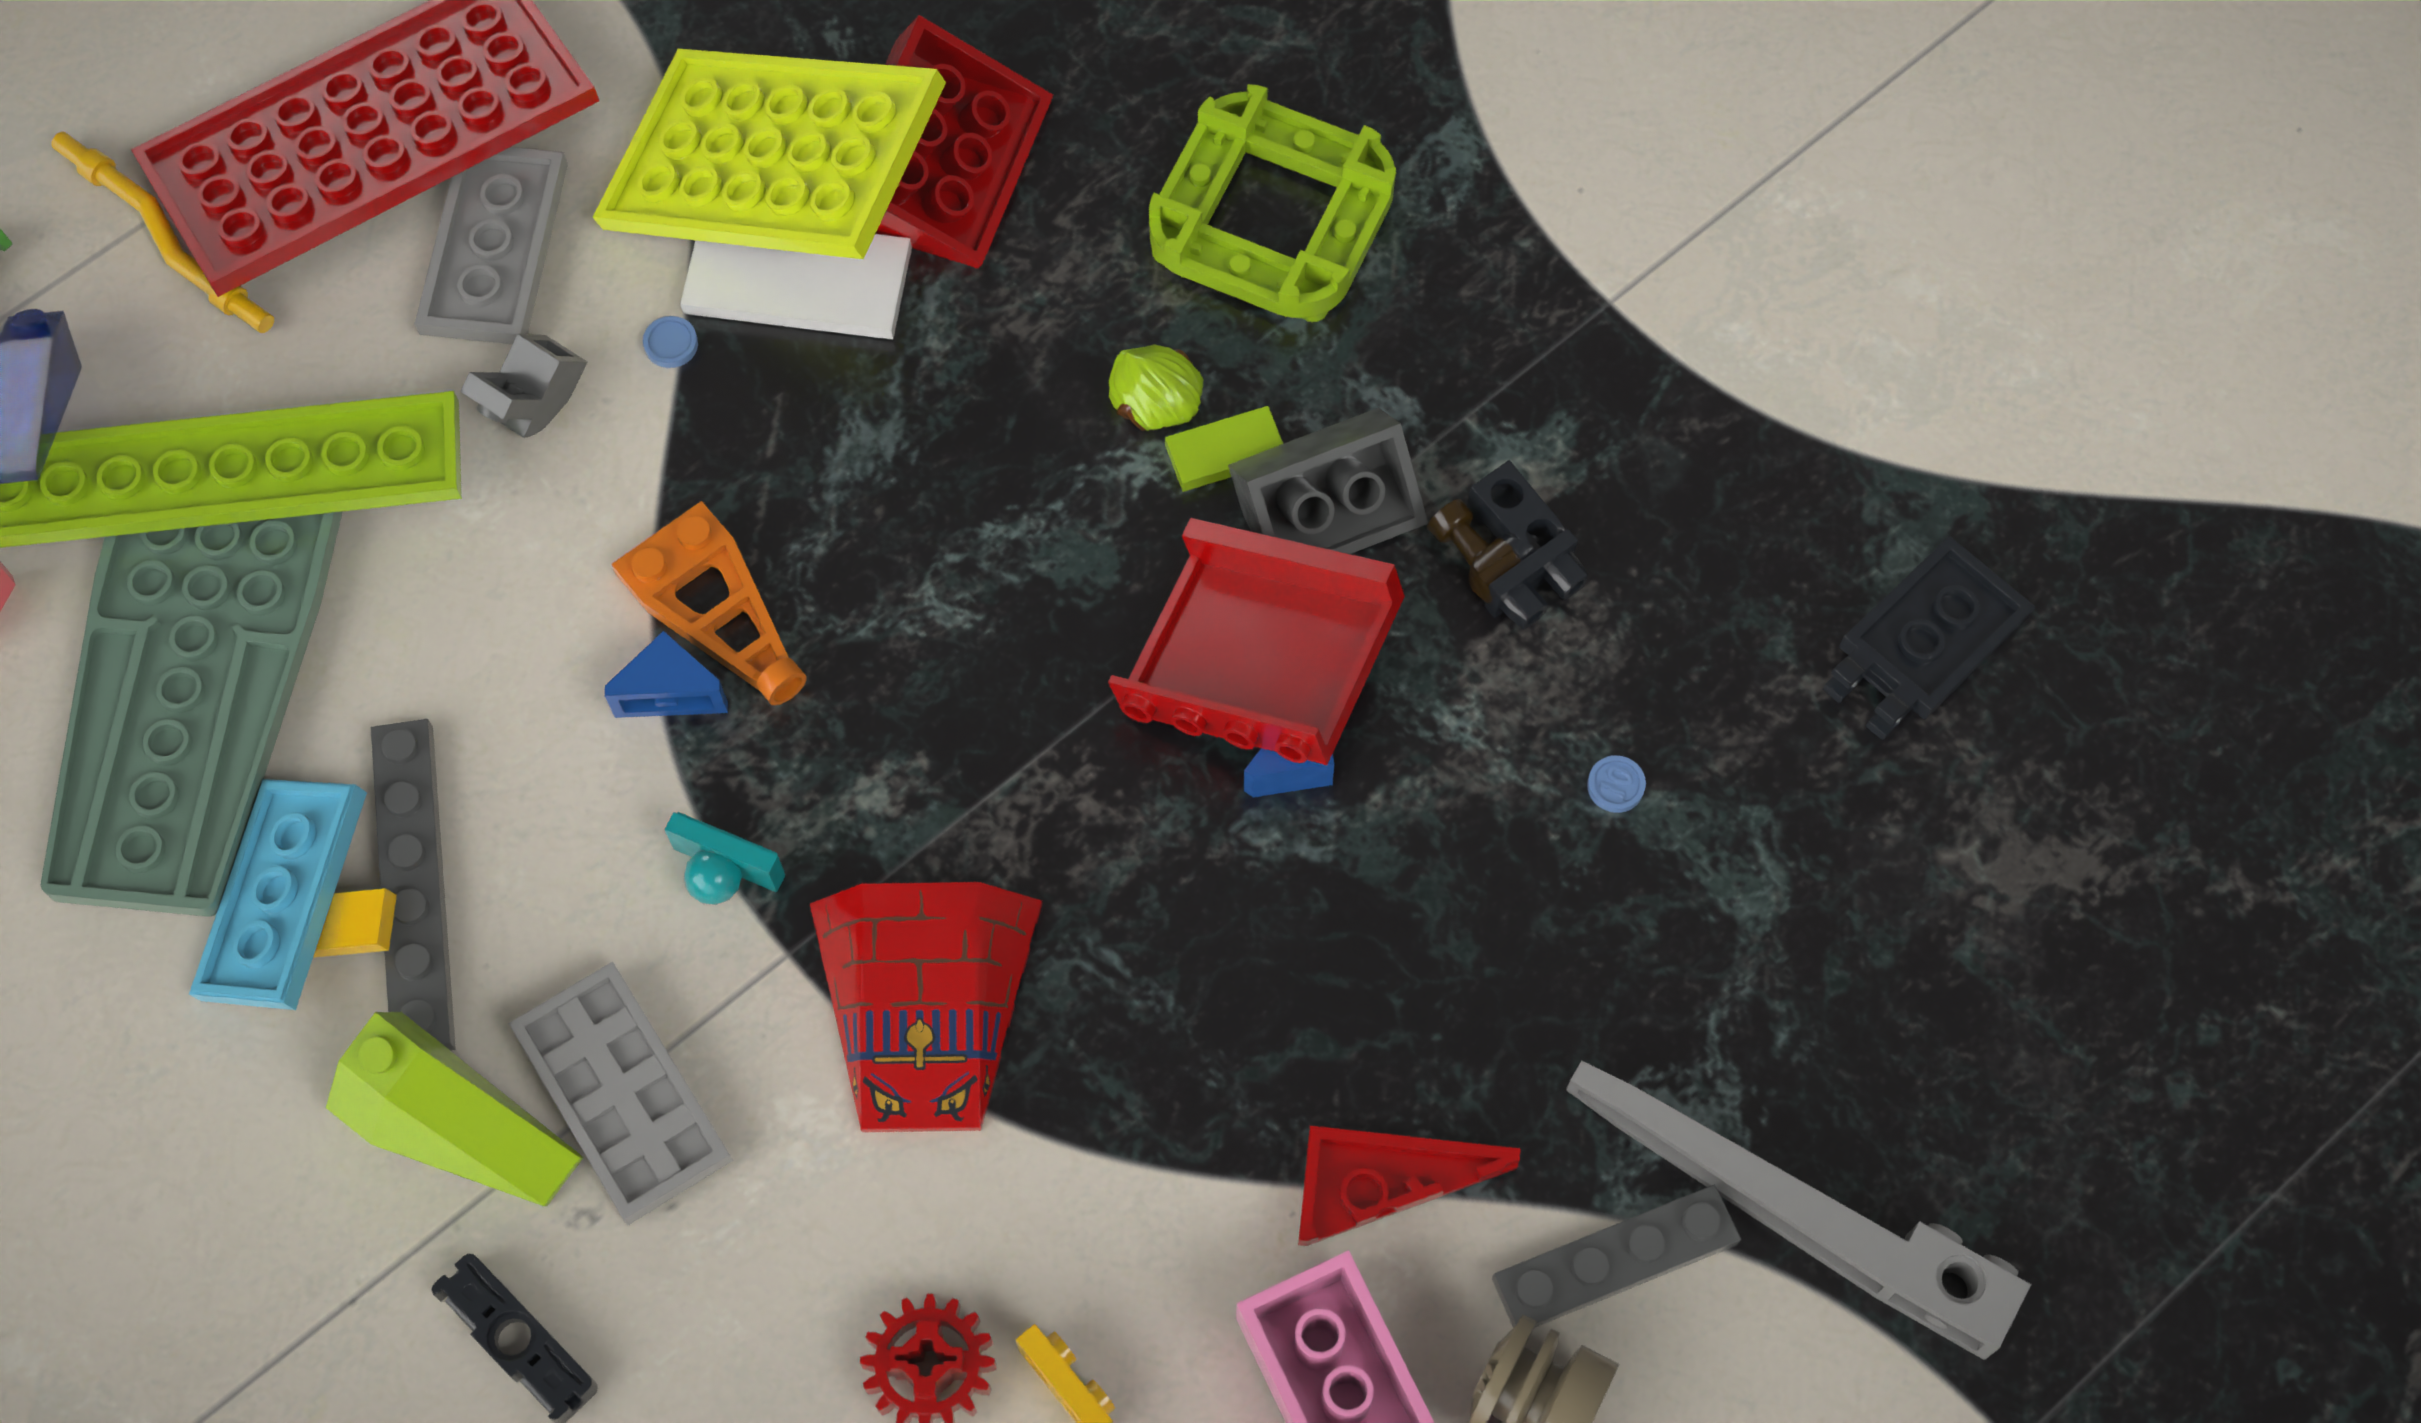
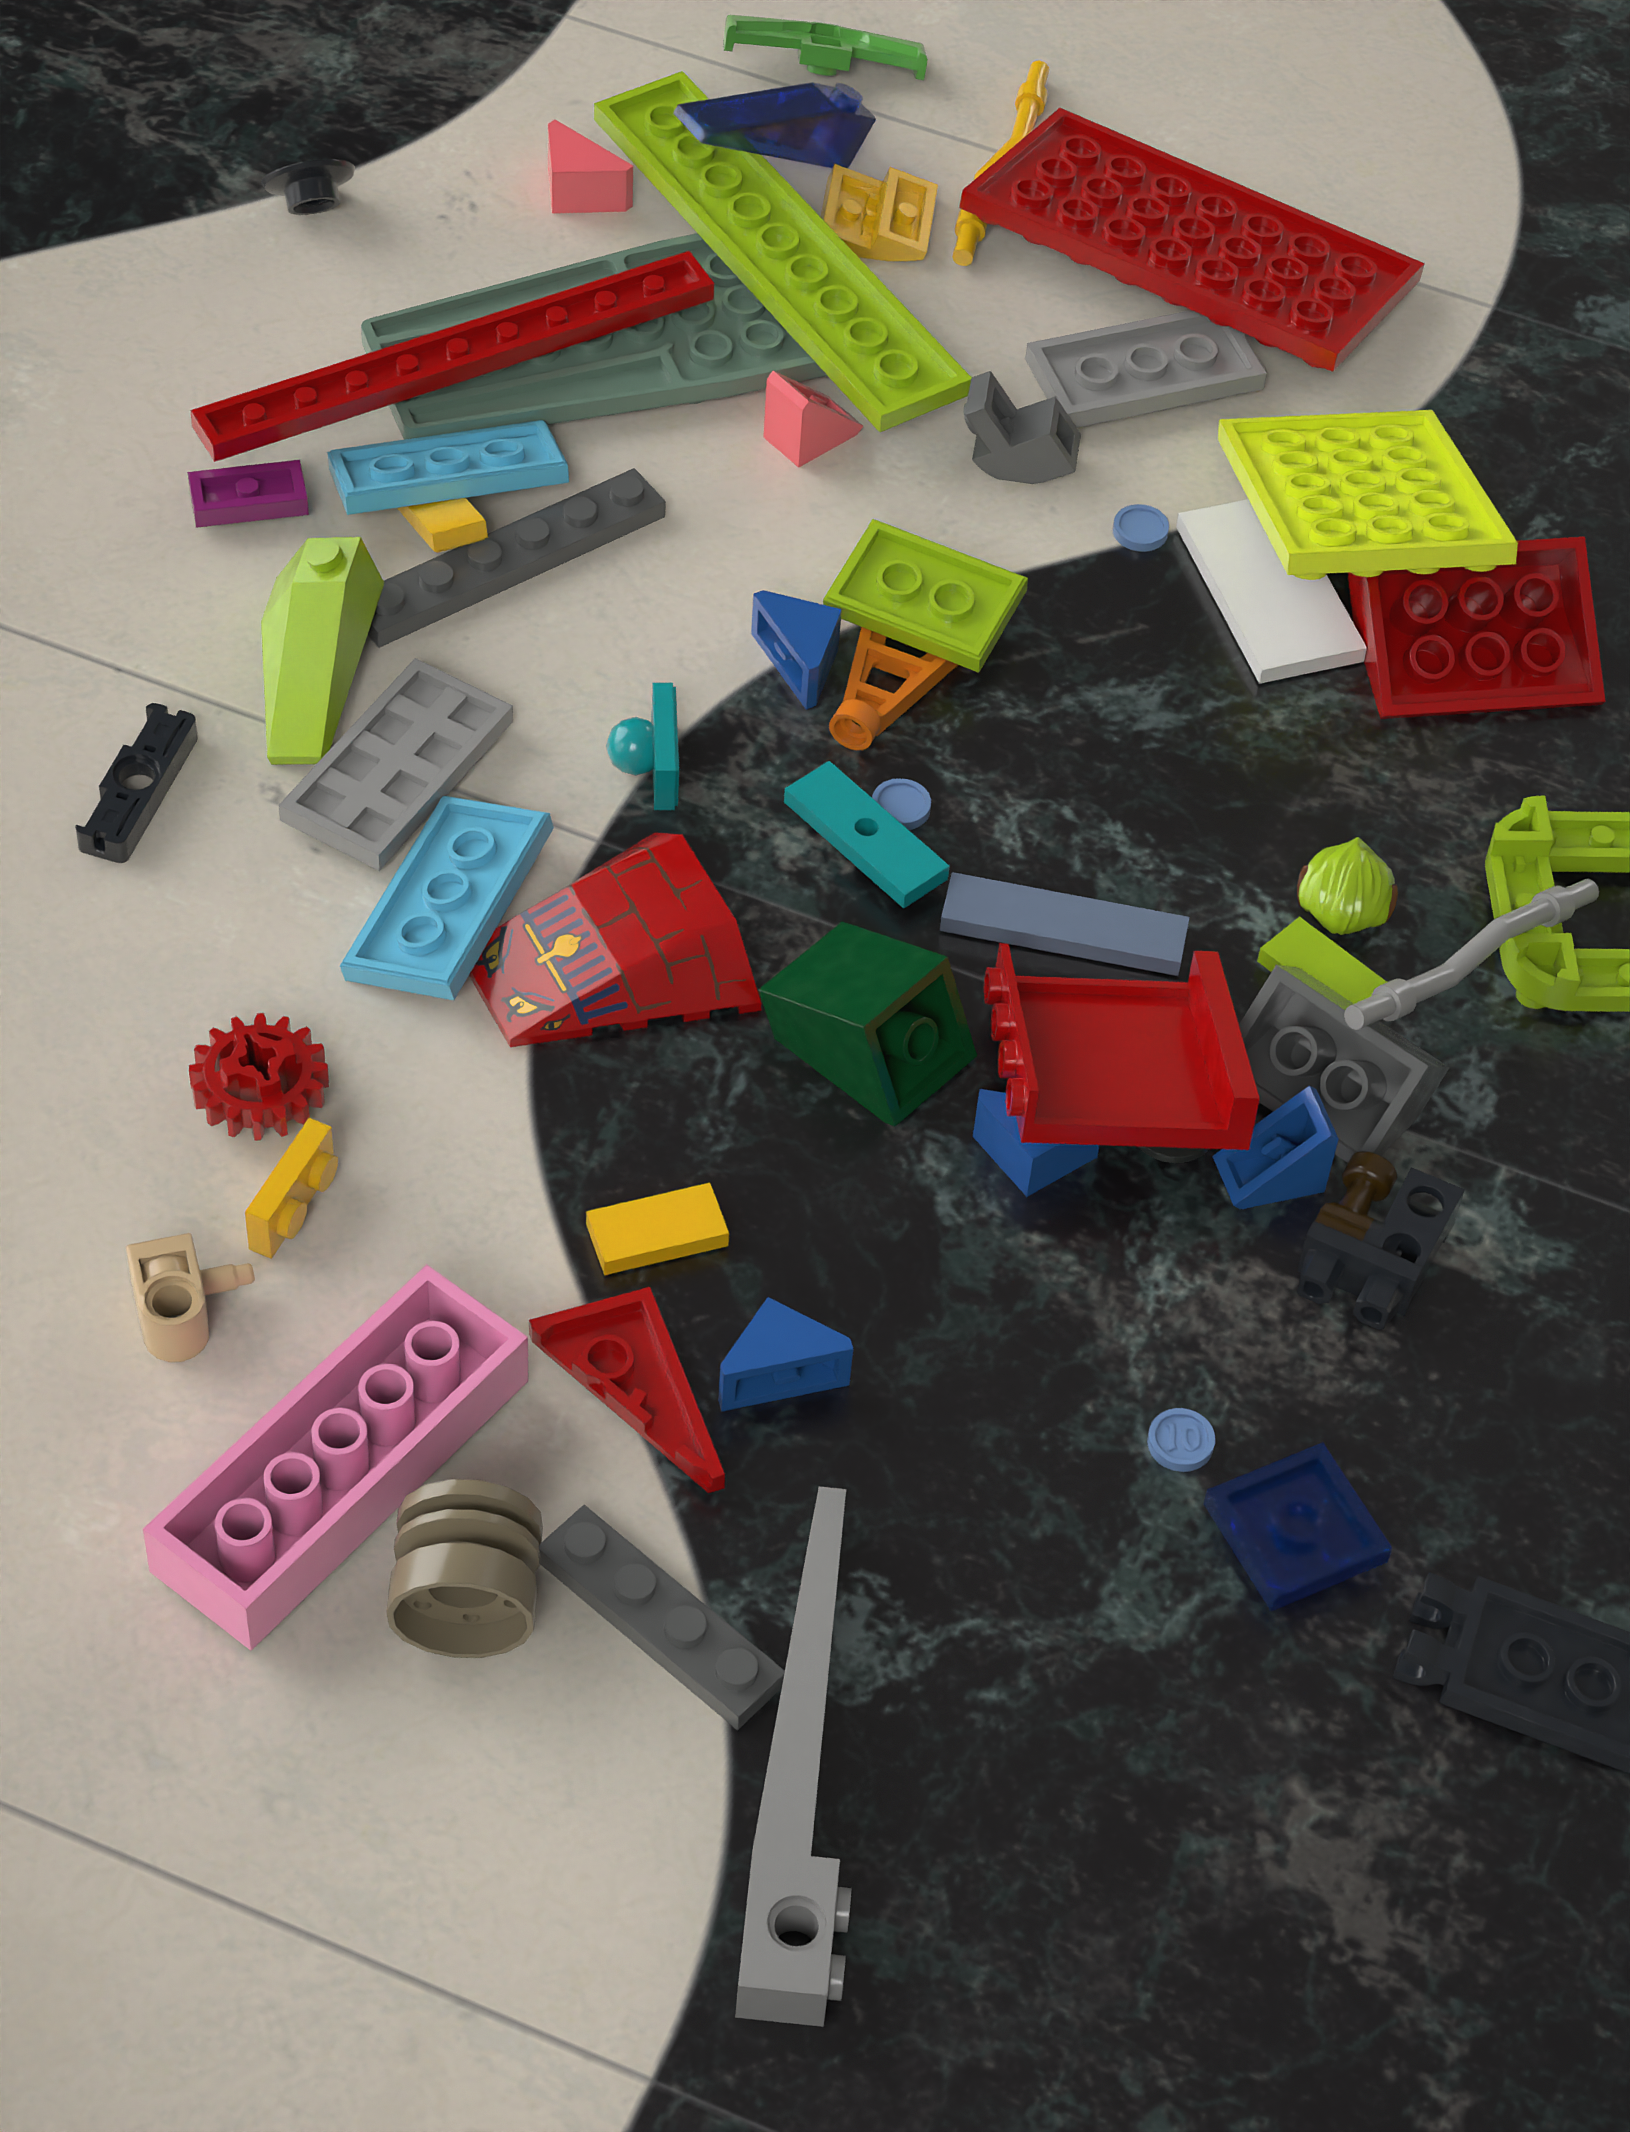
camera: 60 degrees right, 15 degrees down
(151, 834) = (450, 356): none -> red plate
(164, 367) = (880, 217): none -> yellow slope
(204, 1090) = (248, 493): none -> magenta plate
(398, 553) = (803, 420): none -> coral slope
(676, 554) = (926, 595): none -> lime tile
(800, 1113) = (447, 897): none -> medium azure tile
(874, 737) = (866, 834): none -> teal tile
(879, 686) = (904, 801): none -> medium blue piece
(1076, 620) = (1064, 923): none -> sand blue tile
(1112, 821) = (872, 1018): none -> dark green slope
(1239, 1092) = (657, 1228): none -> yellow tile
(1323, 407) = (1400, 996): none -> light grey bar
(1409, 549) = (1286, 1155): none -> blue slope
(1418, 1052) = (783, 1358): none -> blue slope
(1739, 740) = (1297, 1526): none -> clear blue plate

